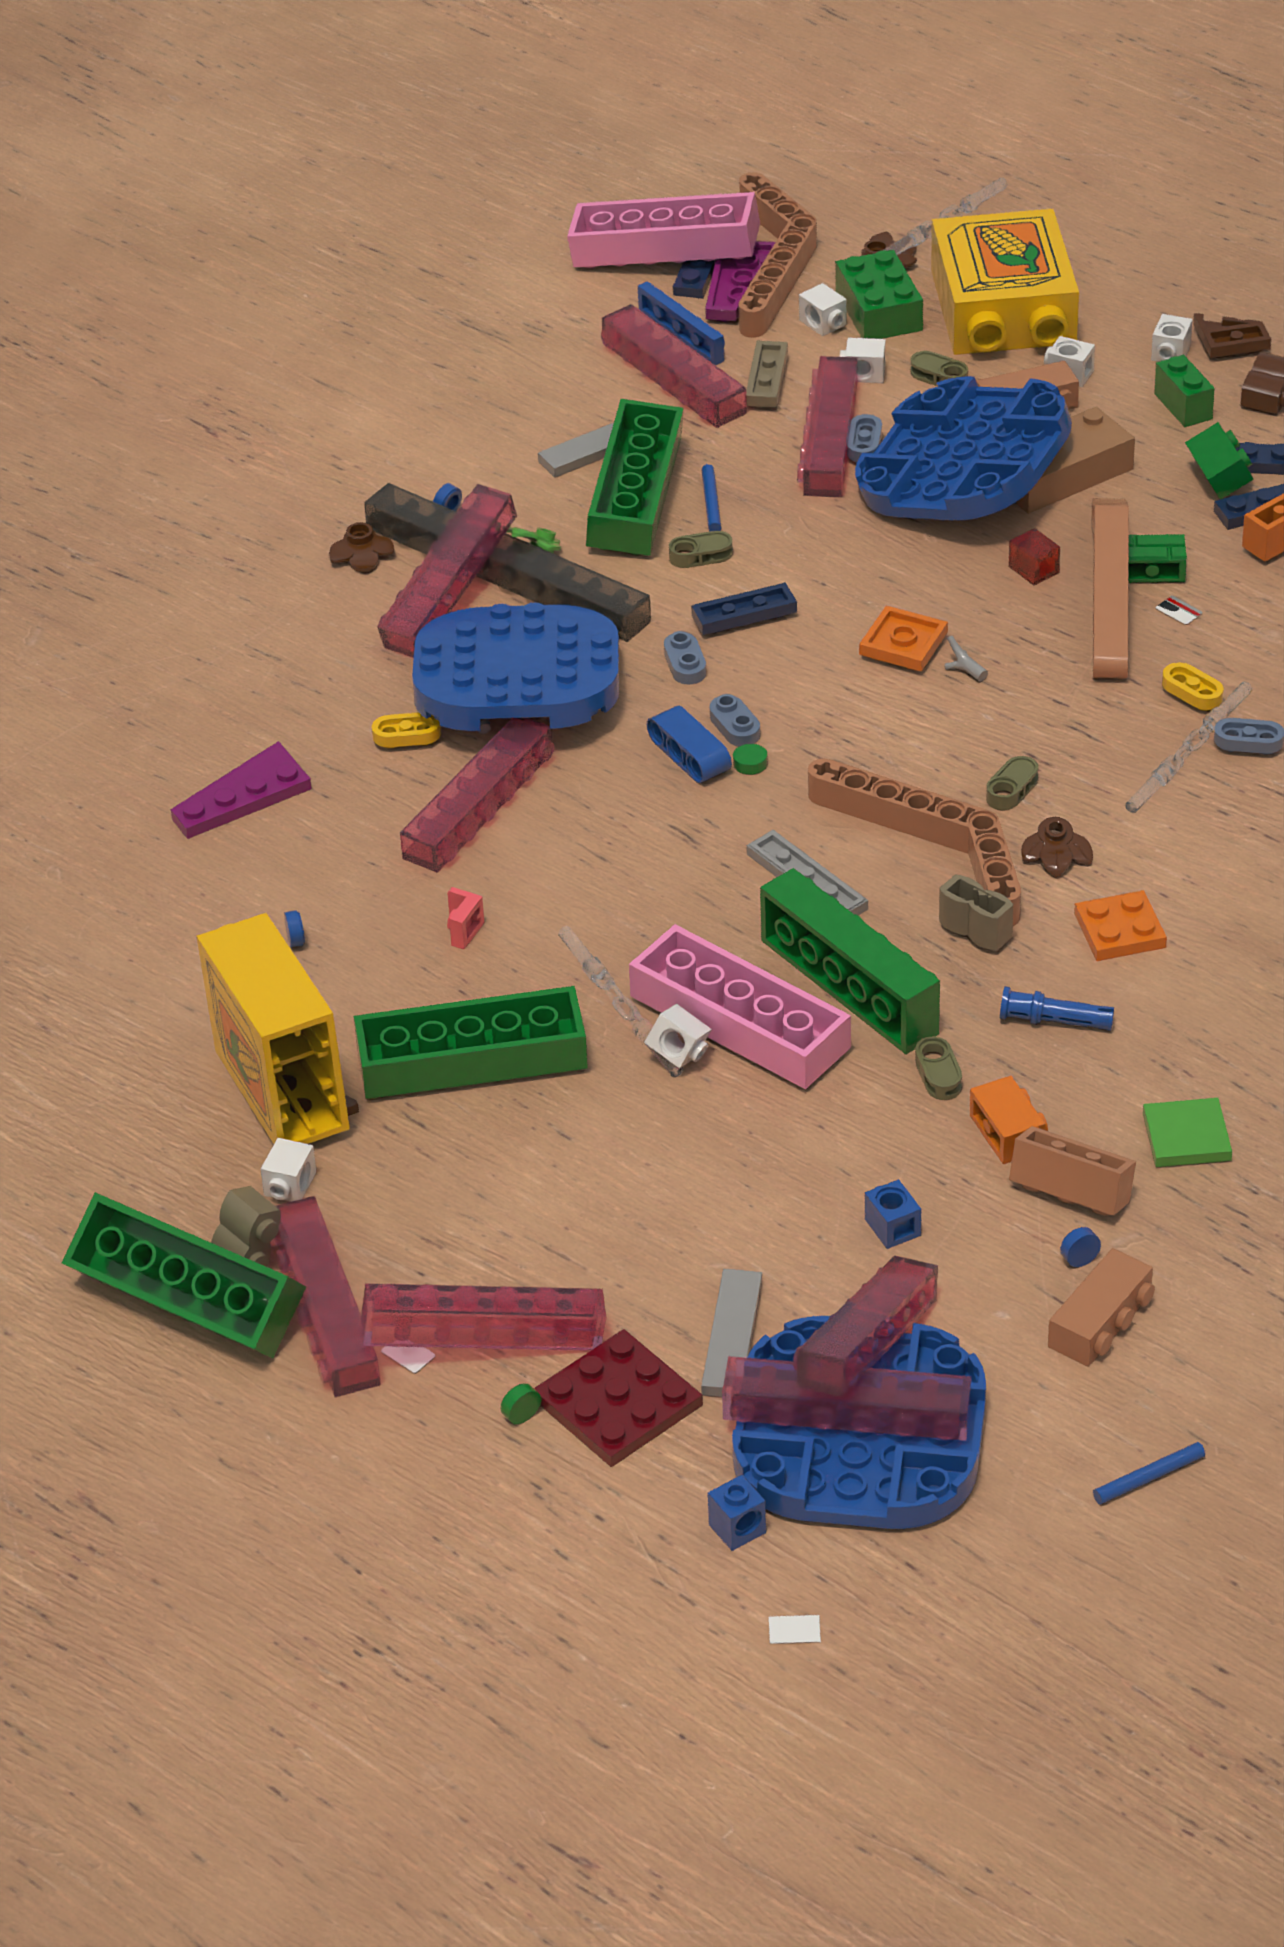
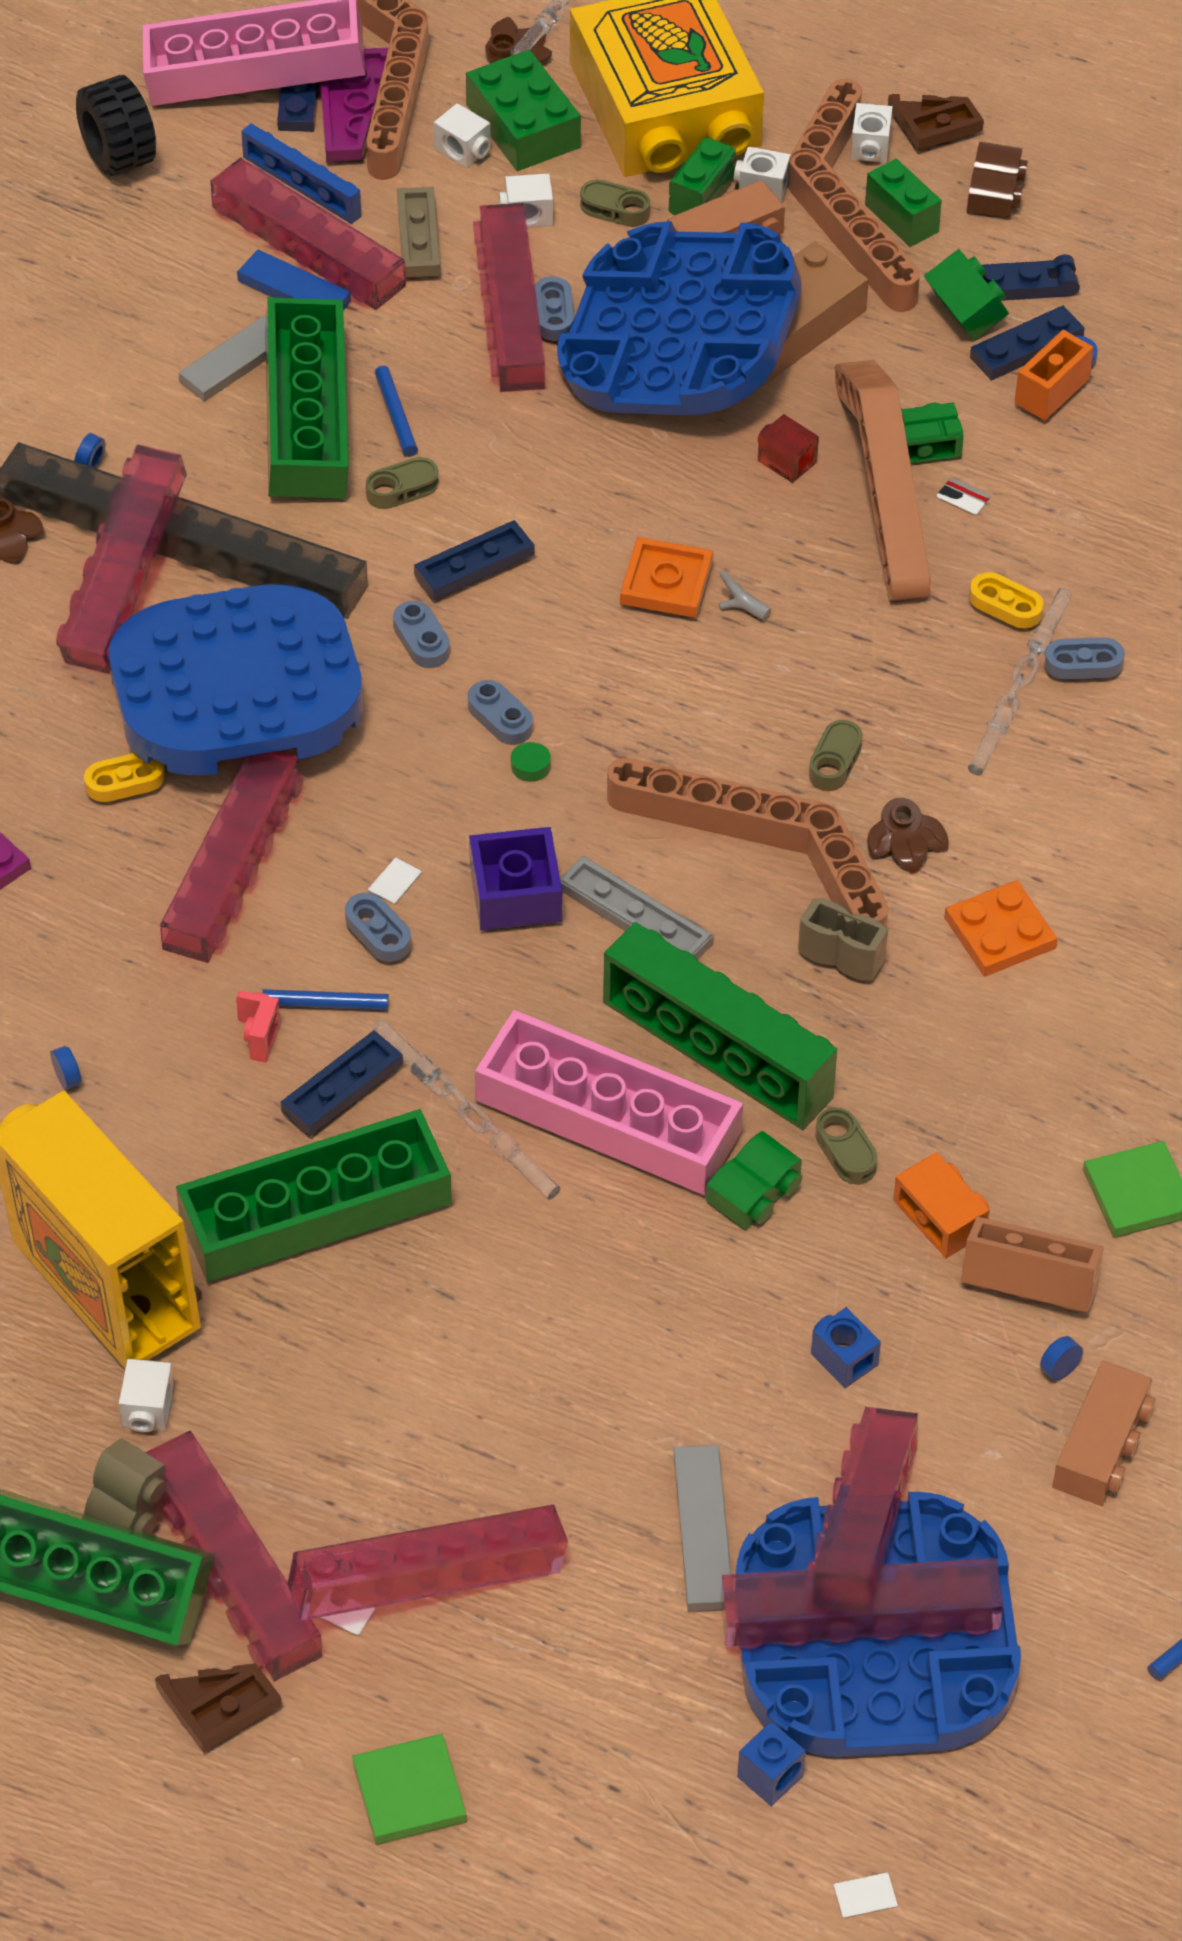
camera: 15 degrees left, 10 degrees up
(282, 1401) = (219, 1701): none -> reddish brown wing
(423, 1490) = (409, 1789): none -> bright green tile
(520, 1403) = (492, 1661): green tile -> none
(521, 967) = (341, 1083): none -> dark blue plate
(530, 909) = (333, 1000): none -> blue bar
(534, 270) = (116, 125): none -> black tyre
(541, 538) = (215, 494): bright green plate -> none
(584, 860) = (382, 928): none -> sand blue plate
(611, 832) = (395, 880): none -> white sticker
(618, 1397) = (596, 1632): dark red plate -> none
(635, 389) = (287, 281): none -> blue tile
(665, 1041) = (554, 1138): white brick -> none
(689, 744) = (458, 753): blue beam -> none
(708, 835) = (515, 878): none -> dark purple brick
(849, 1081) = (754, 1180): none -> green brick
(1016, 352) = (702, 176): none -> green brick
(1038, 1007) = (938, 1052): blue pin -> none
(1126, 390) = (837, 207): none -> nougat beam

